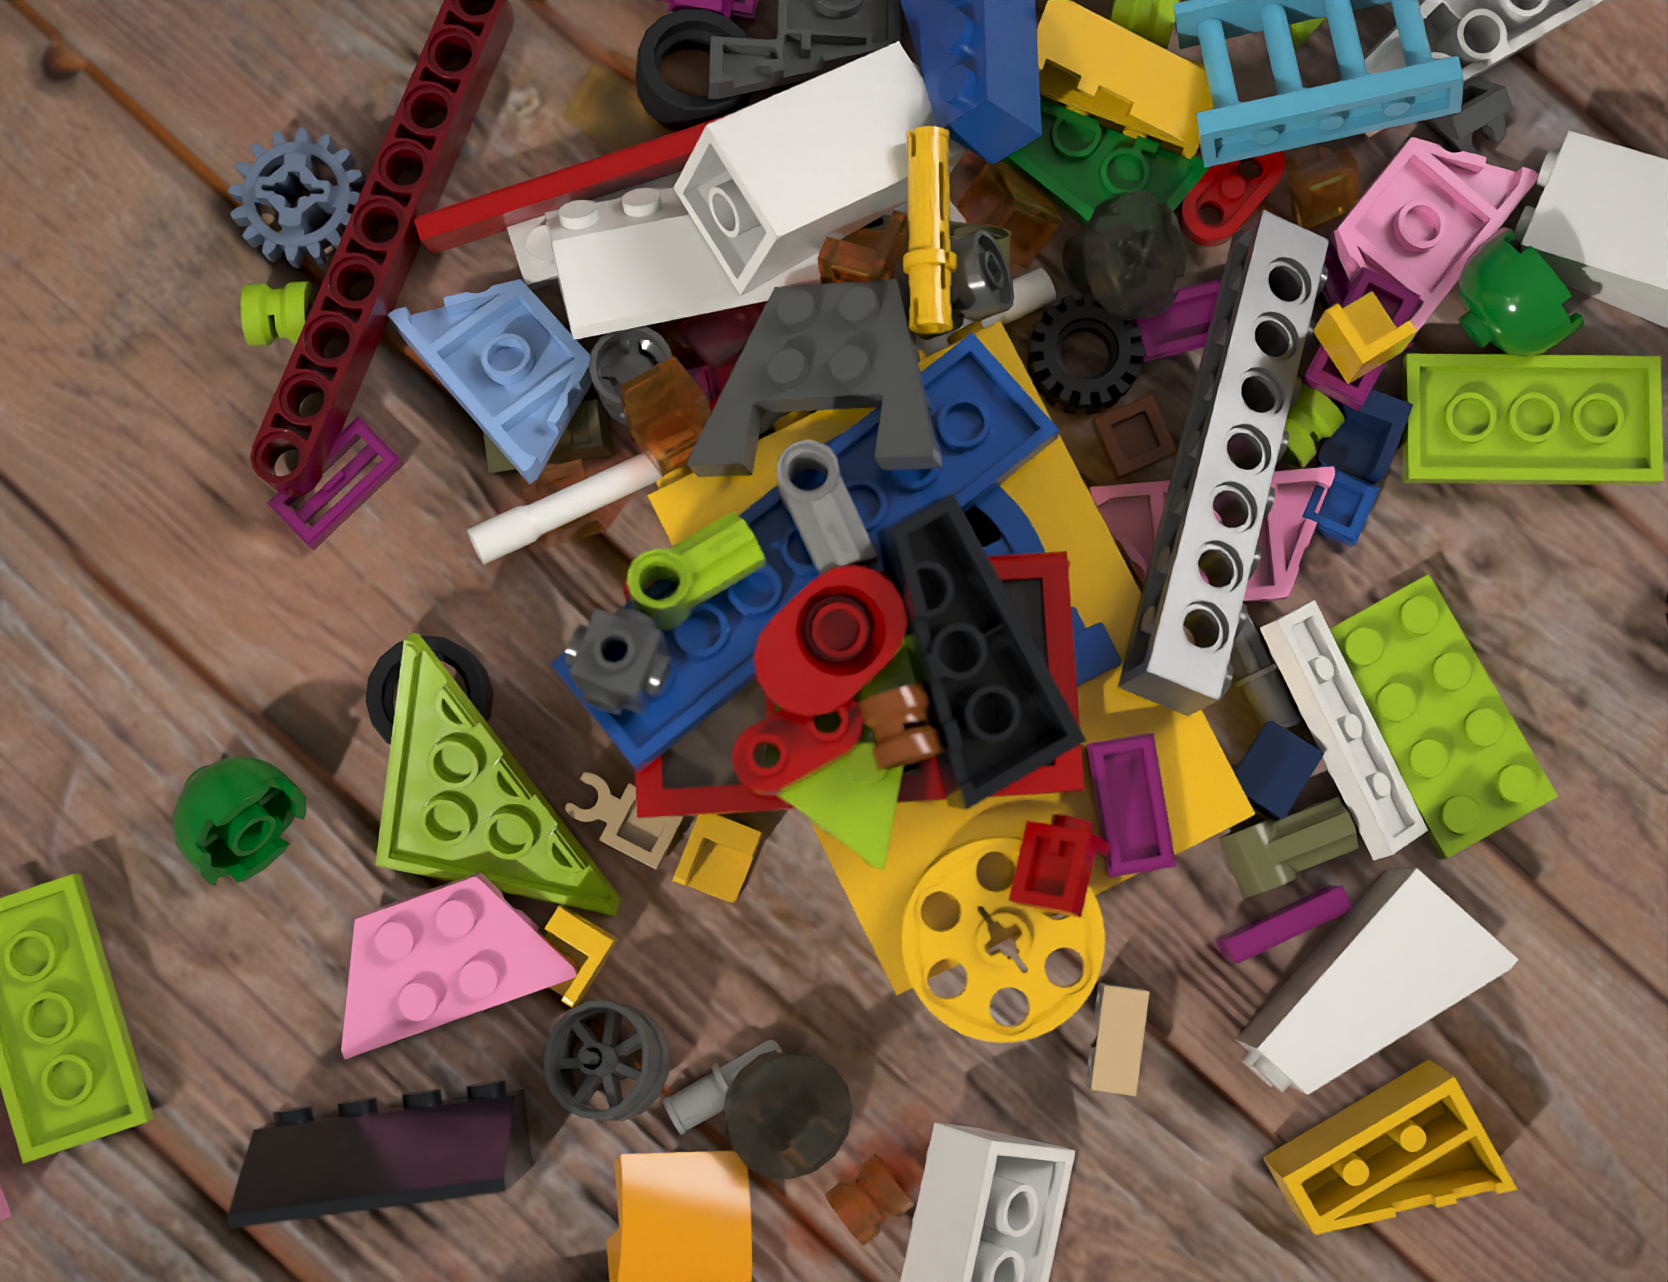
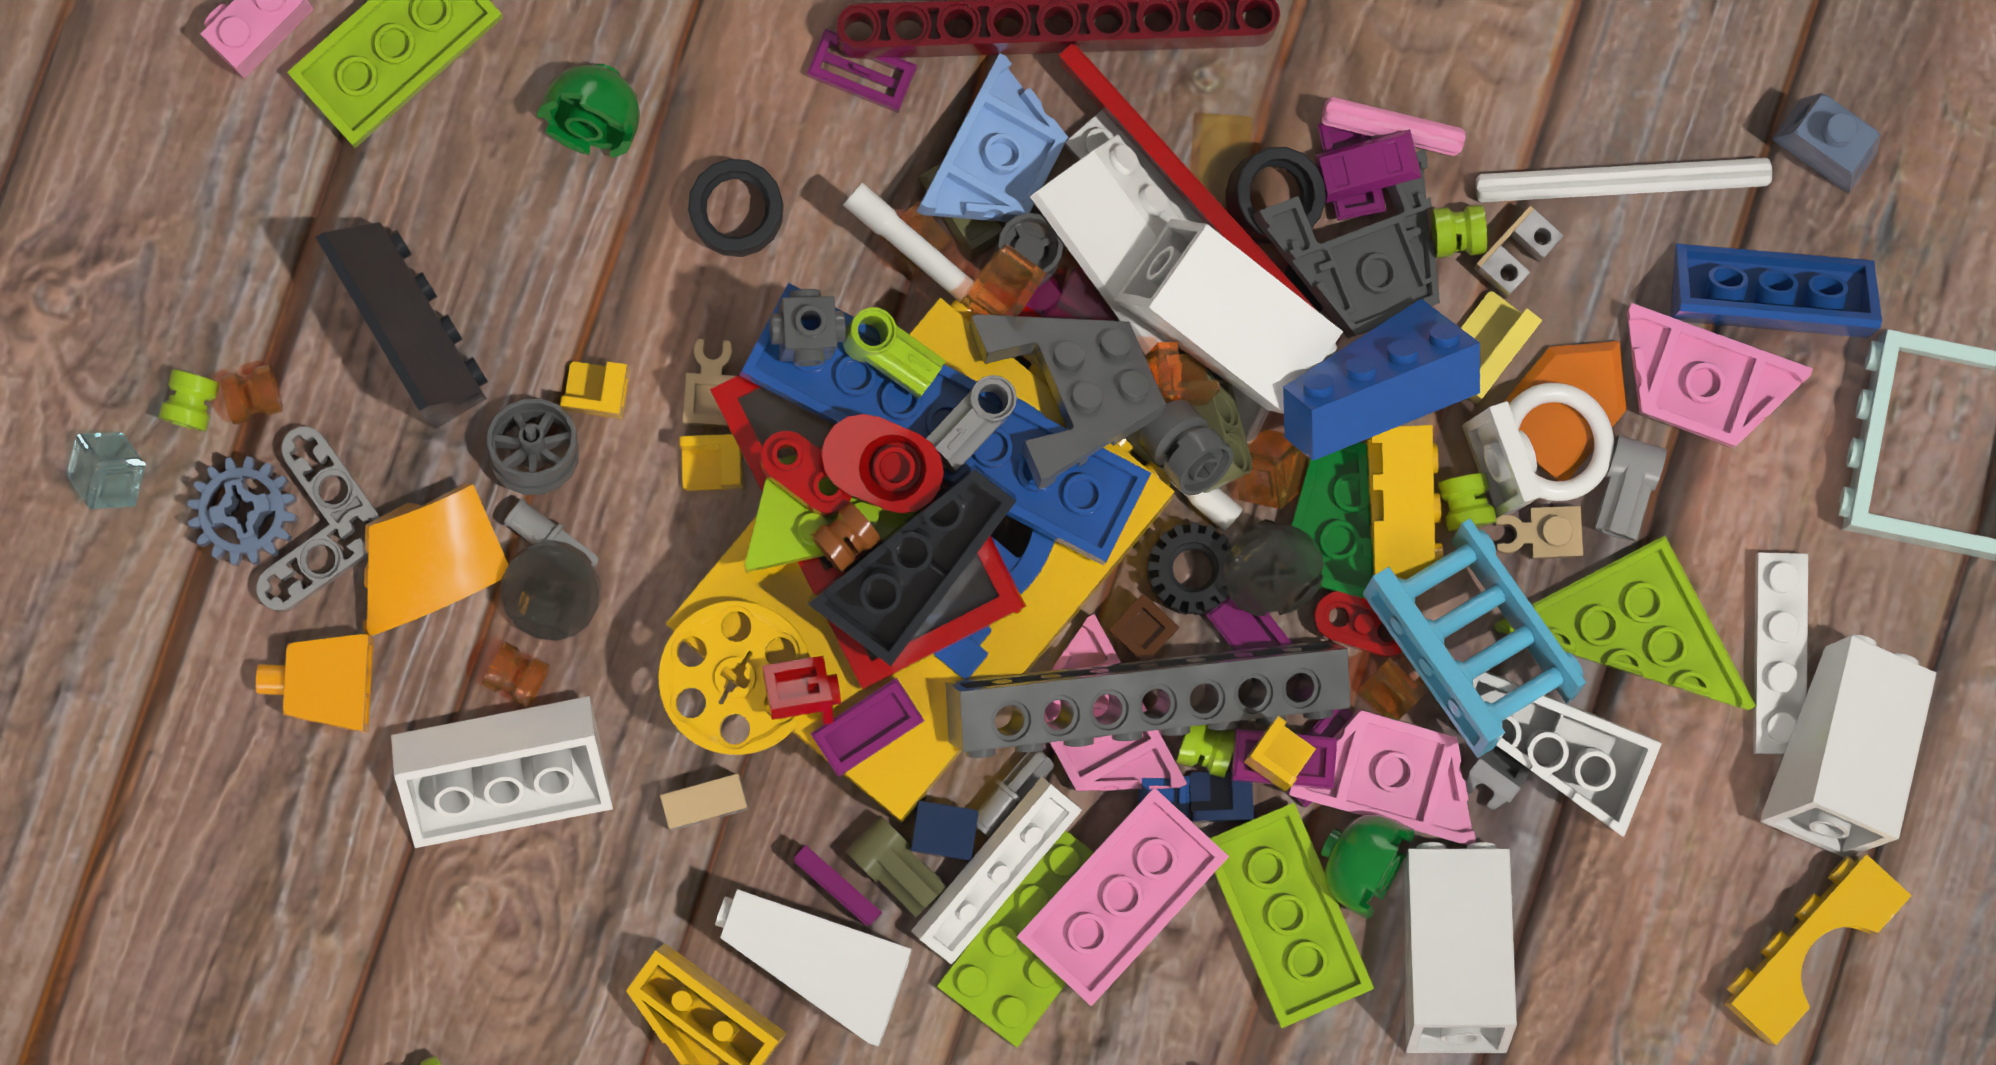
camera: 60 degrees right, 0 degrees up
(442, 961) = (552, 300): bright pink wing -> none
(467, 805) = (667, 270): lime tile -> none
(929, 252) = (1215, 407): yellow pin -> none
(1442, 595) = (1122, 896): none -> bright pink plate

